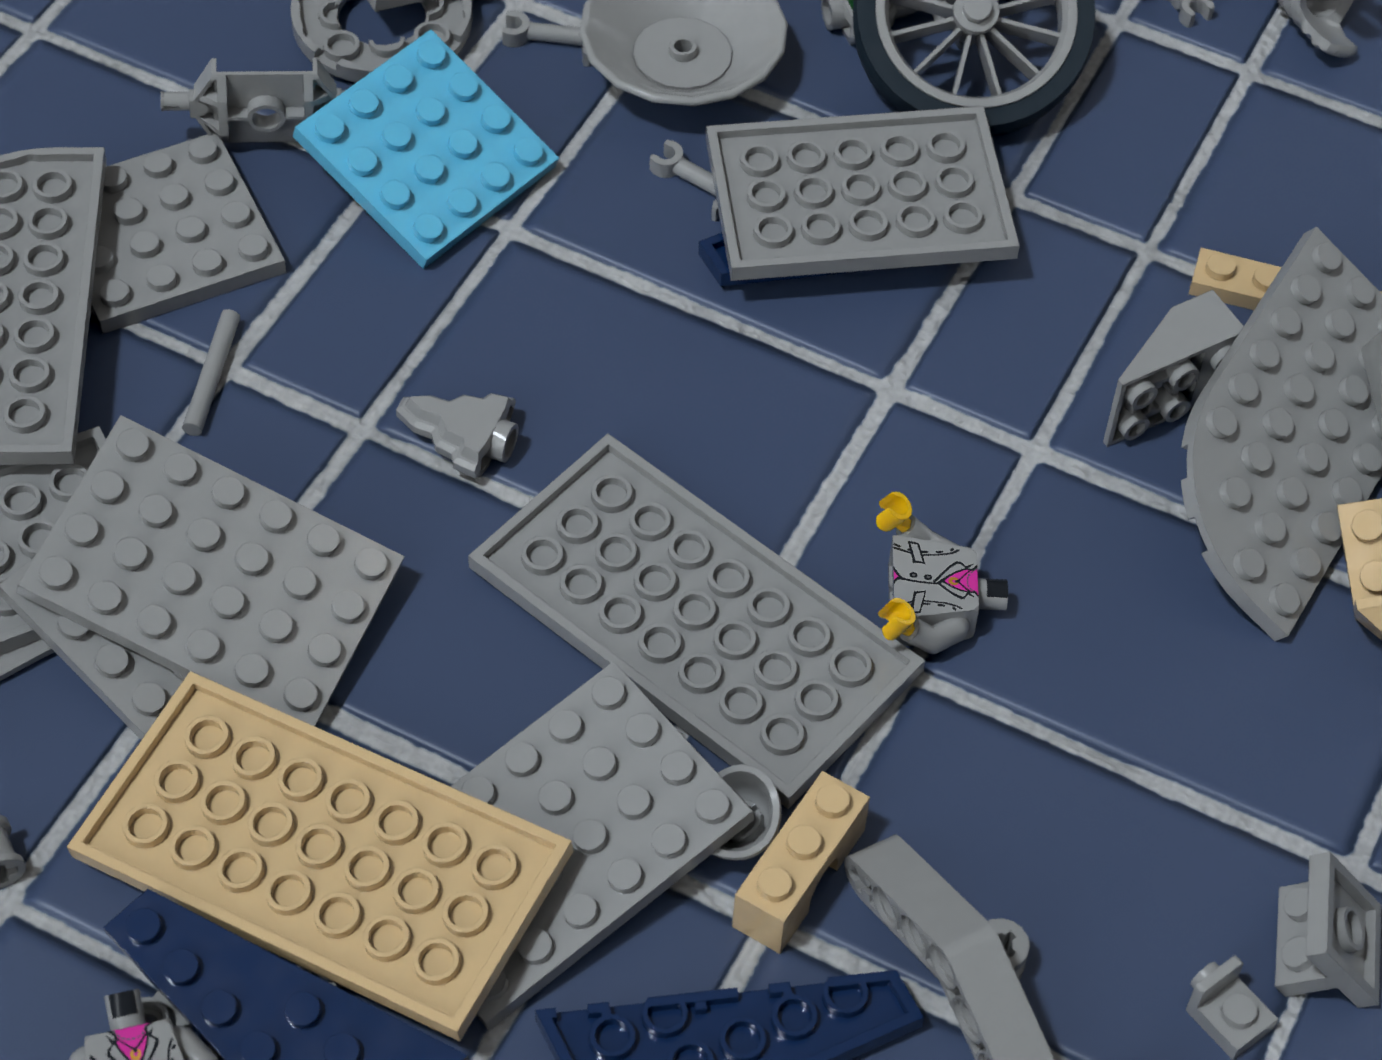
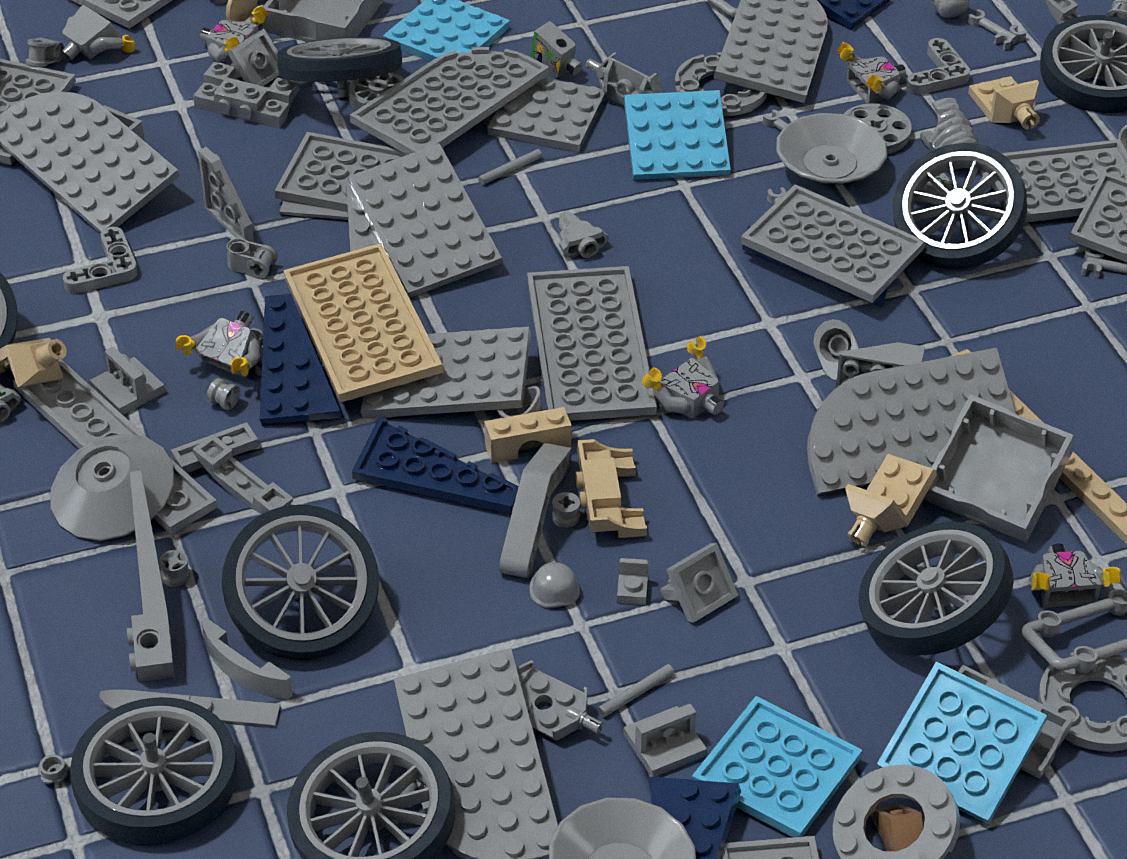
camera: 45 degrees right, 10 degrees down
(73, 109) = (554, 50): none -> light grey torso
(1021, 875) = (601, 492): none -> tan bracket
(1059, 373) = (830, 340): none -> light grey piece

